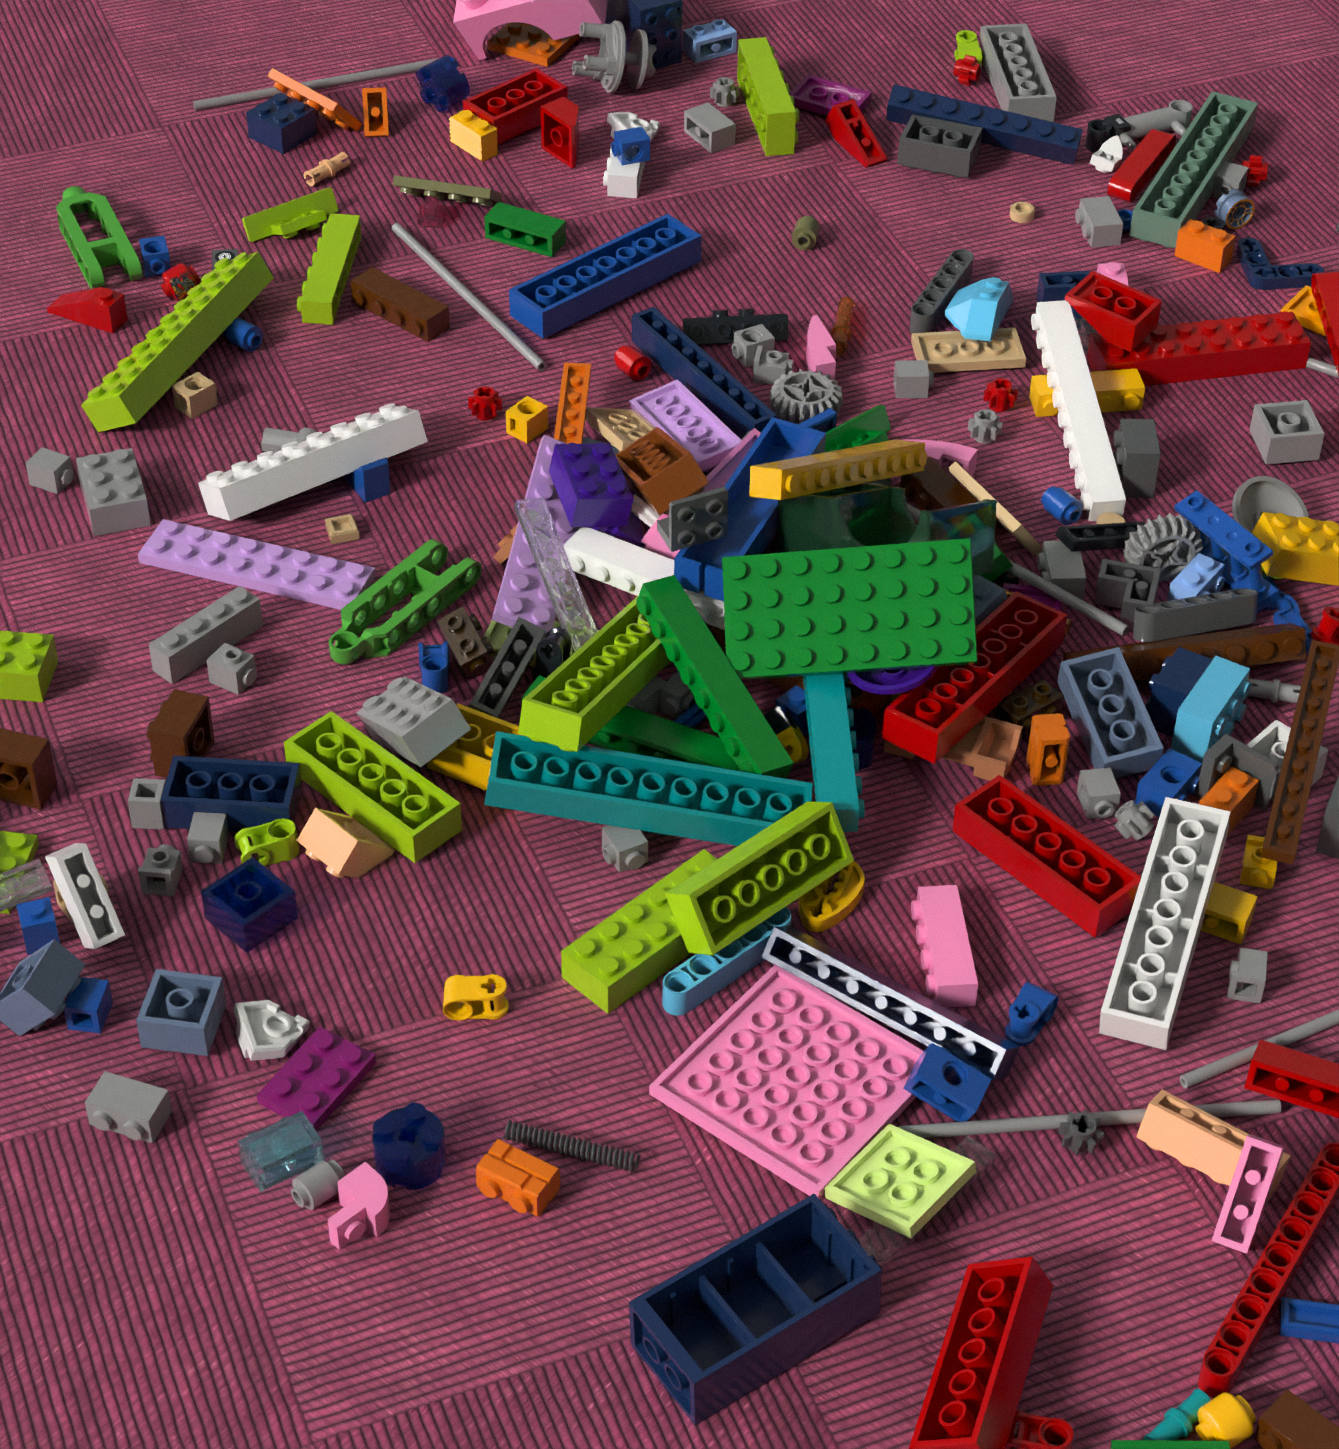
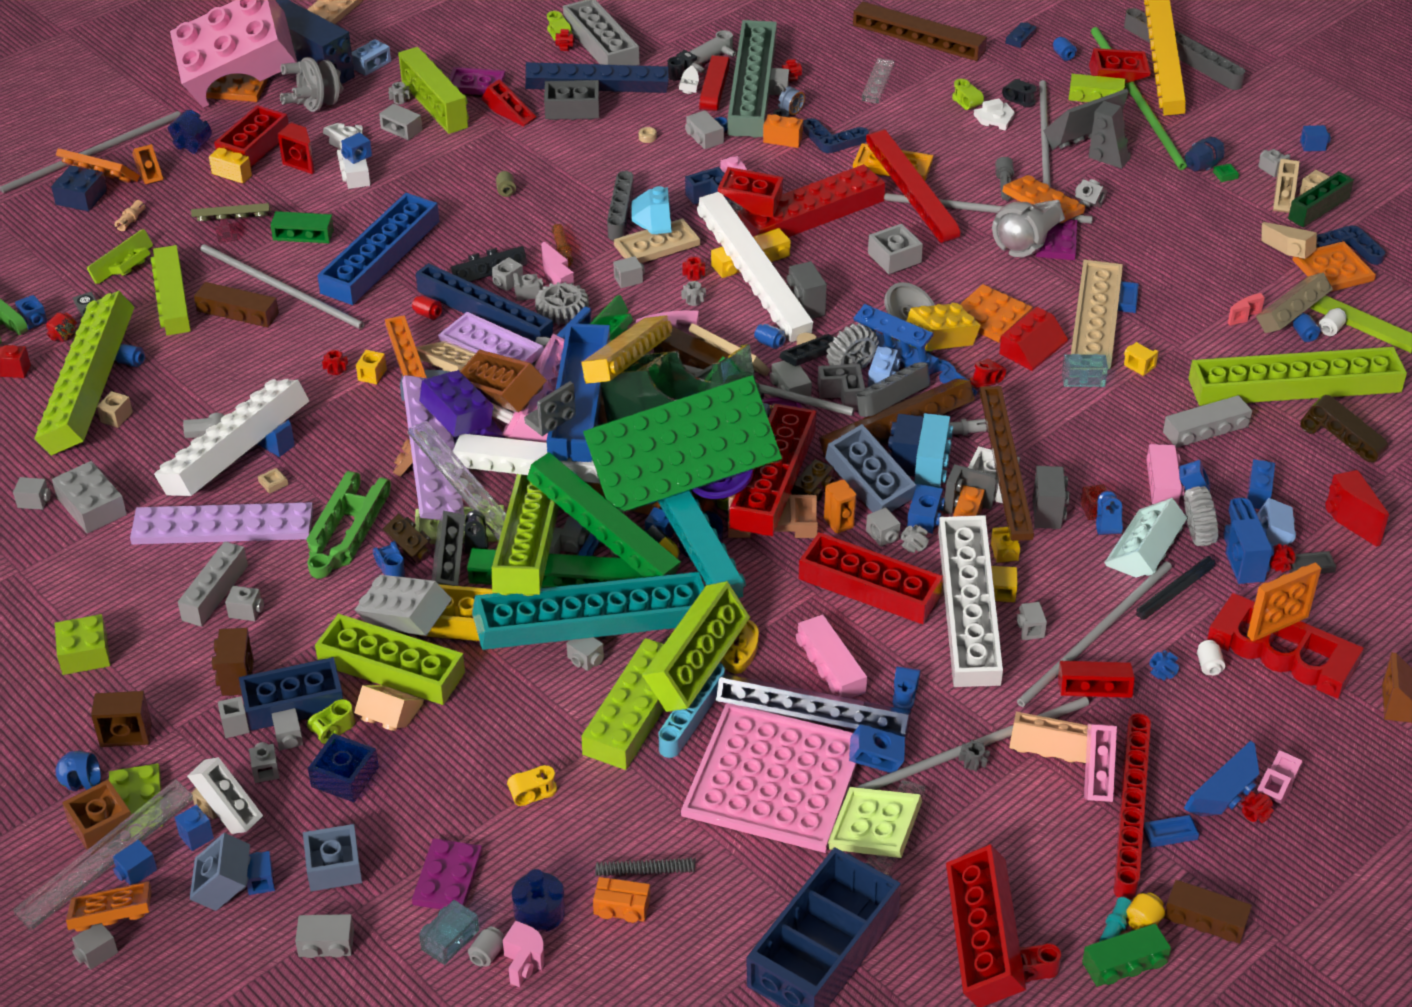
camera: 20 degrees left, 0 degrees up
(267, 1030) = (395, 852): white plate -> none

